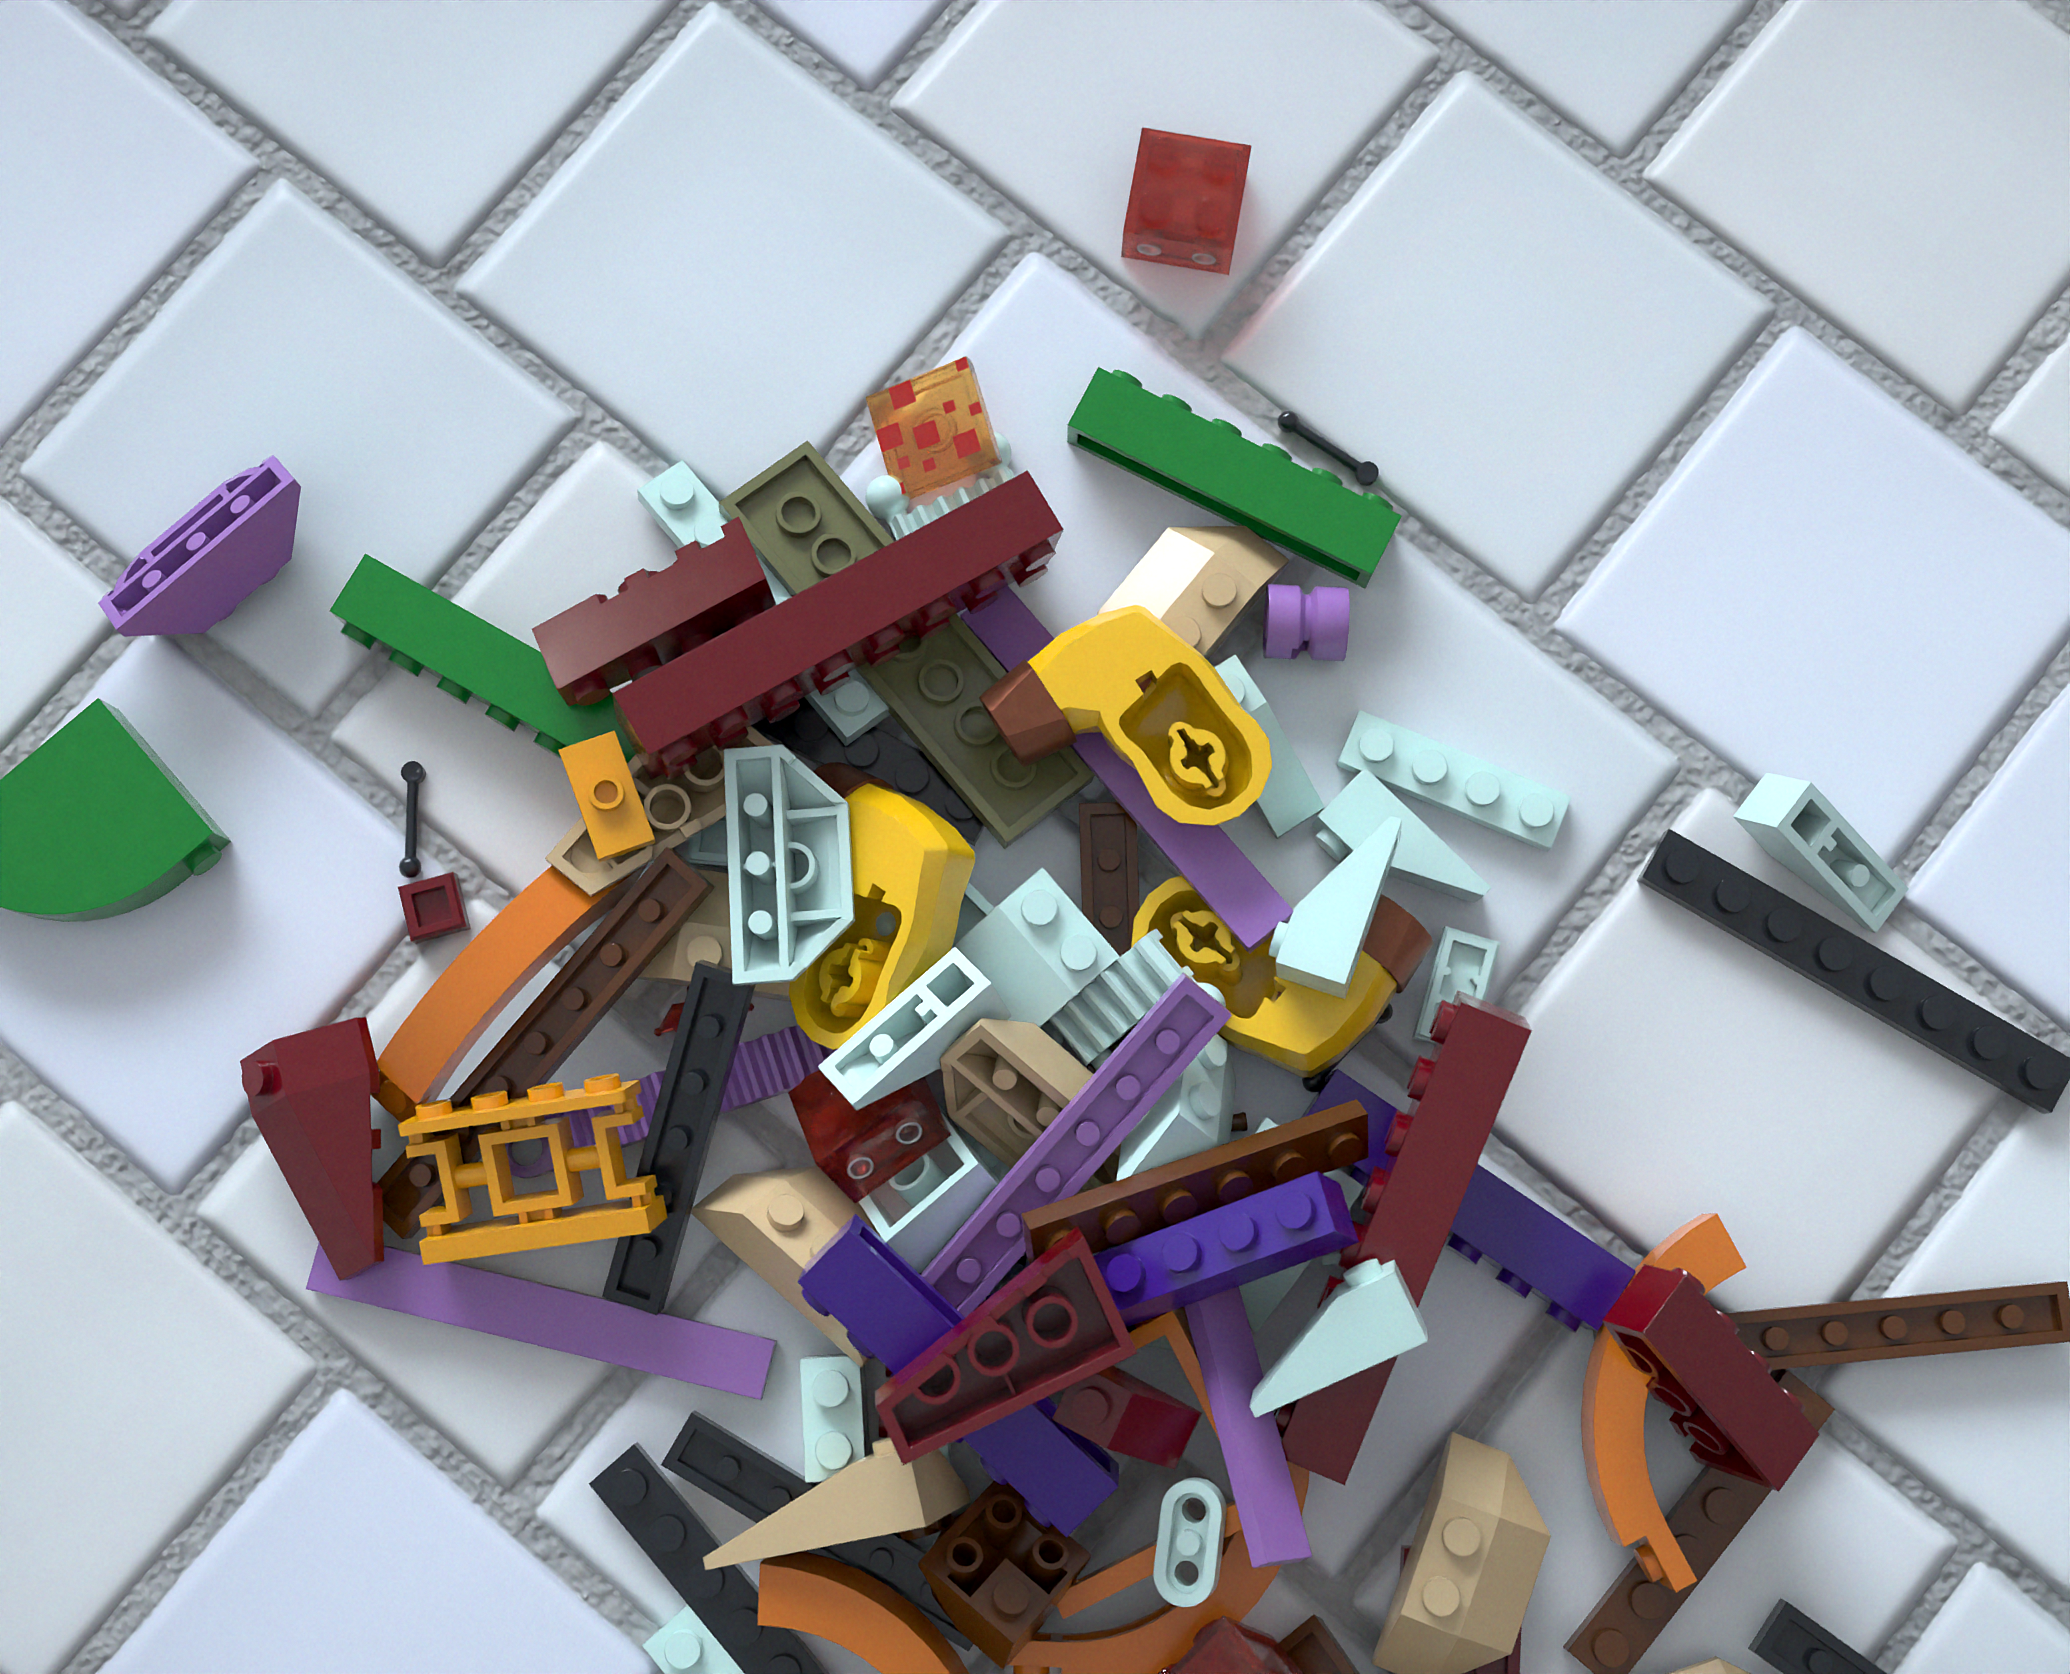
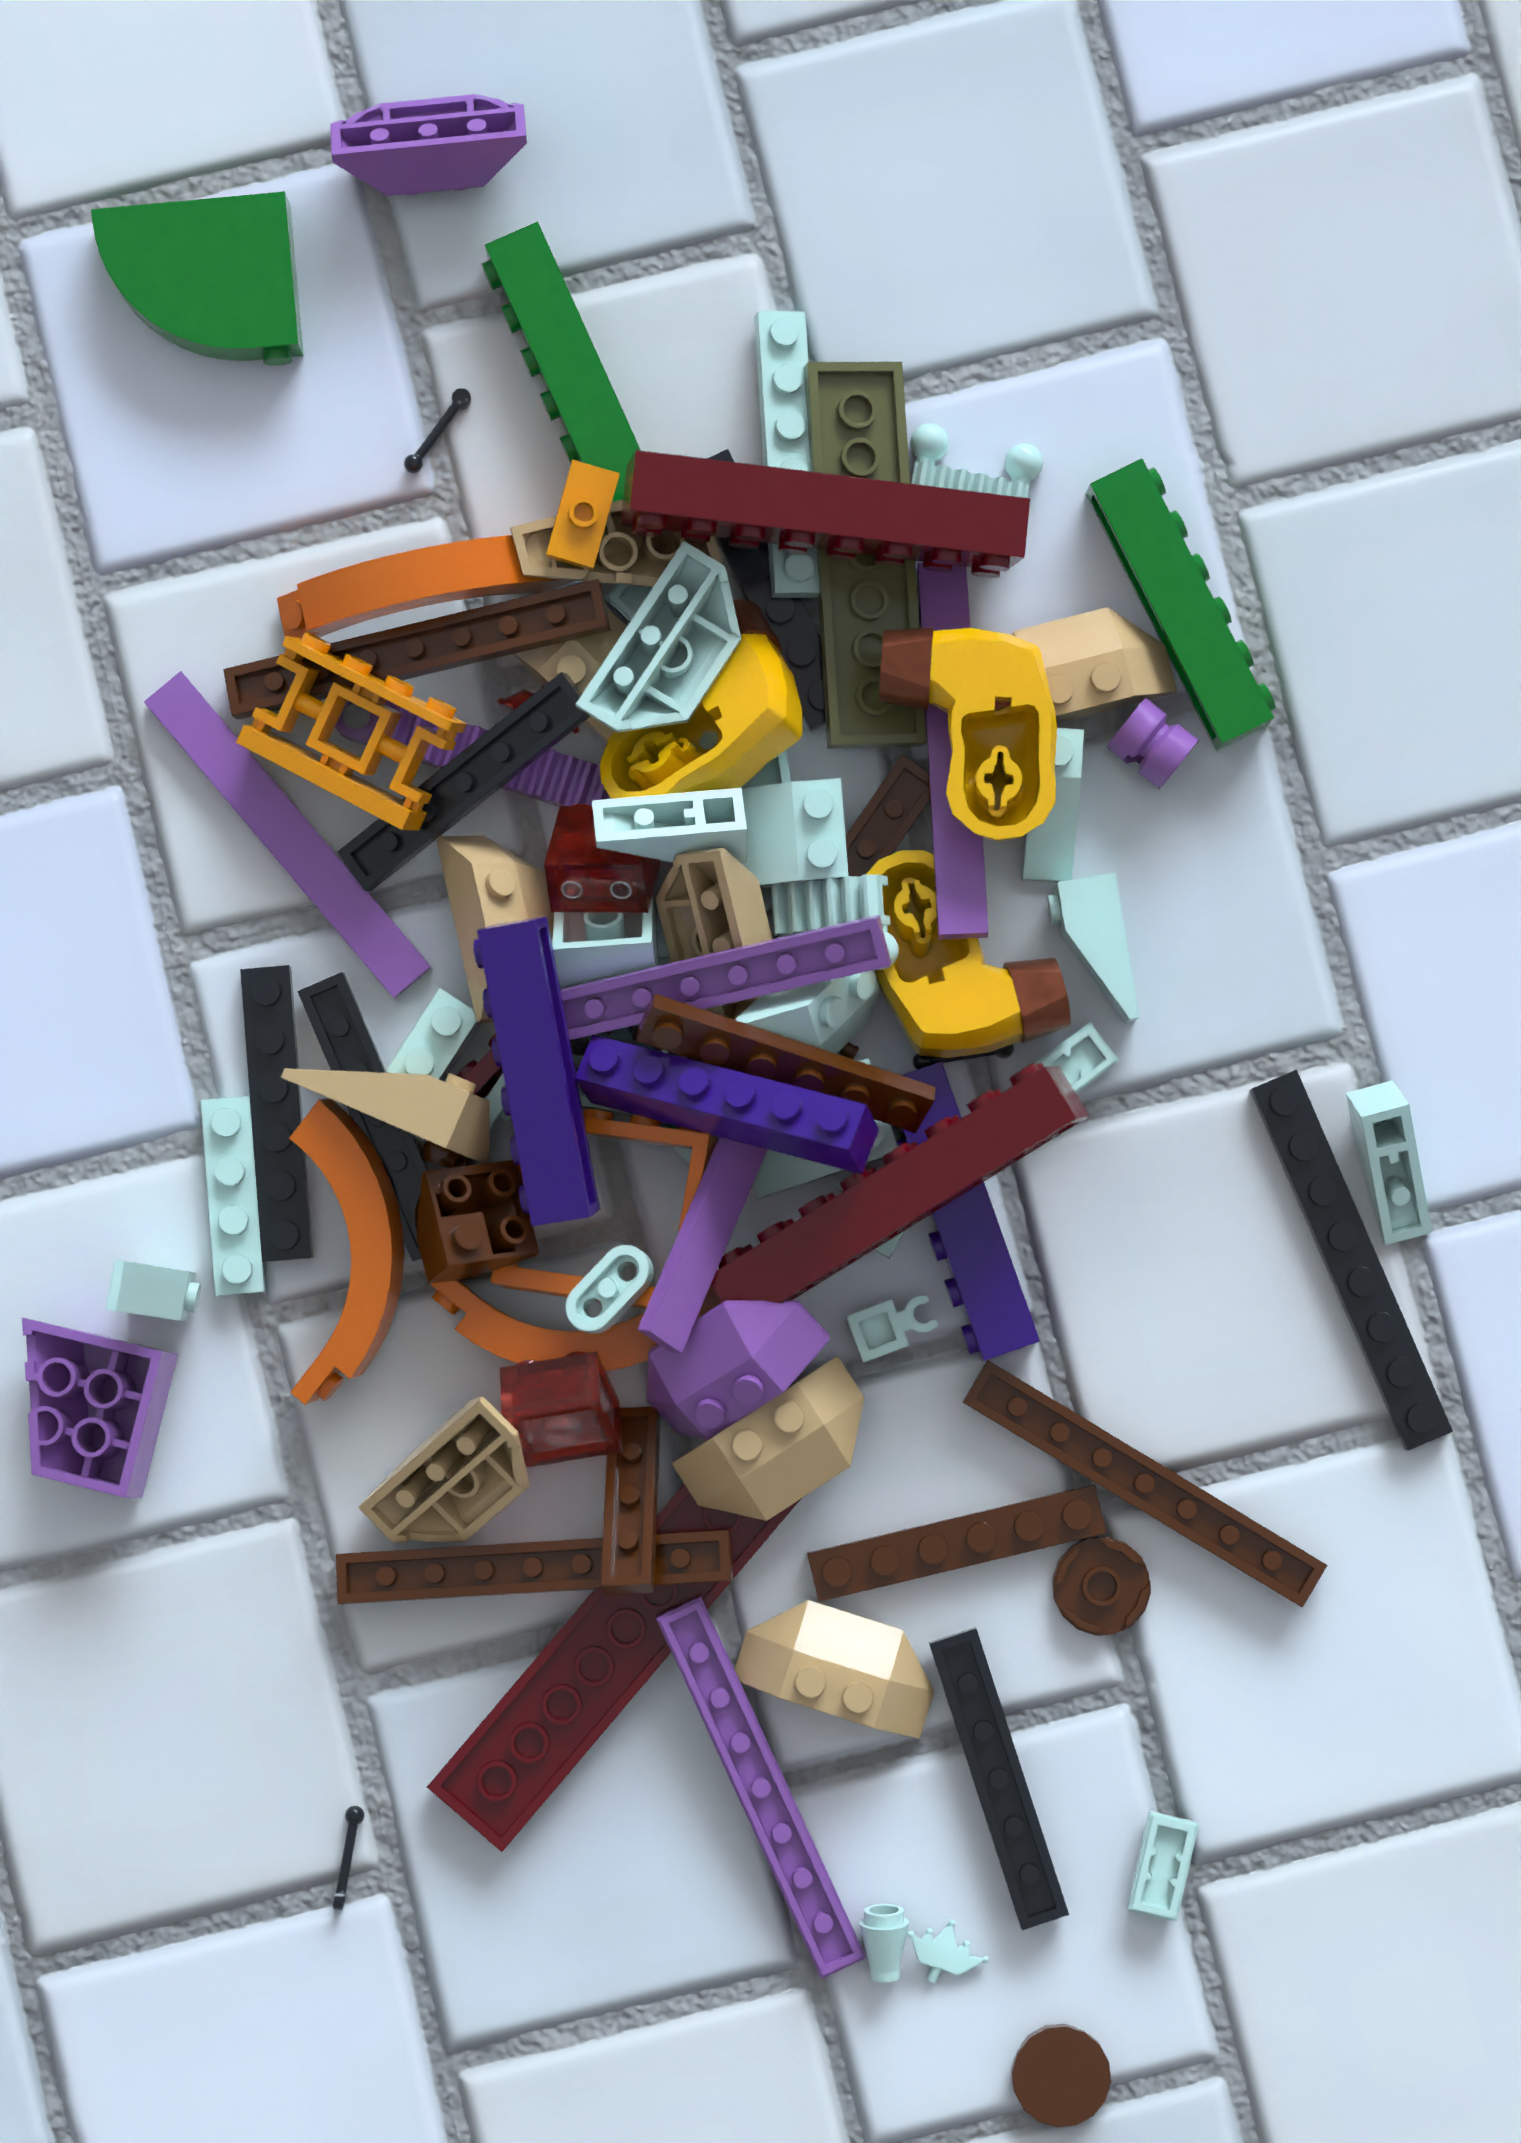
camera: 30 degrees right, 5 degrees up
(316, 1119) = (231, 593): dark red wedge -> none
(434, 907) = (410, 504): dark red tile -> none
(654, 617) = (703, 415): dark red wedge -> none
(934, 428) = (996, 417): clear orange tile -> none
(1011, 1351) = (593, 1075): dark red wedge -> none
(1128, 1417) = (628, 1176): dark red slope -> none
(1185, 201) = (1295, 382): clear red piece -> none
(1333, 920) = (1012, 956): light aqua slope -> none
(1353, 1329) = (819, 1227): light aqua slope -> none
(1365, 472) = (1279, 668): black hinge -> none
(1367, 1522) = (732, 1364): none -> medium lavender wedge
(1454, 781) = (1174, 928): light aqua plate -> none
(1470, 1370) = (883, 1329): none -> light aqua plate
(1615, 1413) = (971, 1401): orange arch -> none
(1709, 1378) = (1029, 1436): dark red wedge -> none
(1868, 1465) = (1101, 1585): none -> reddish brown tile

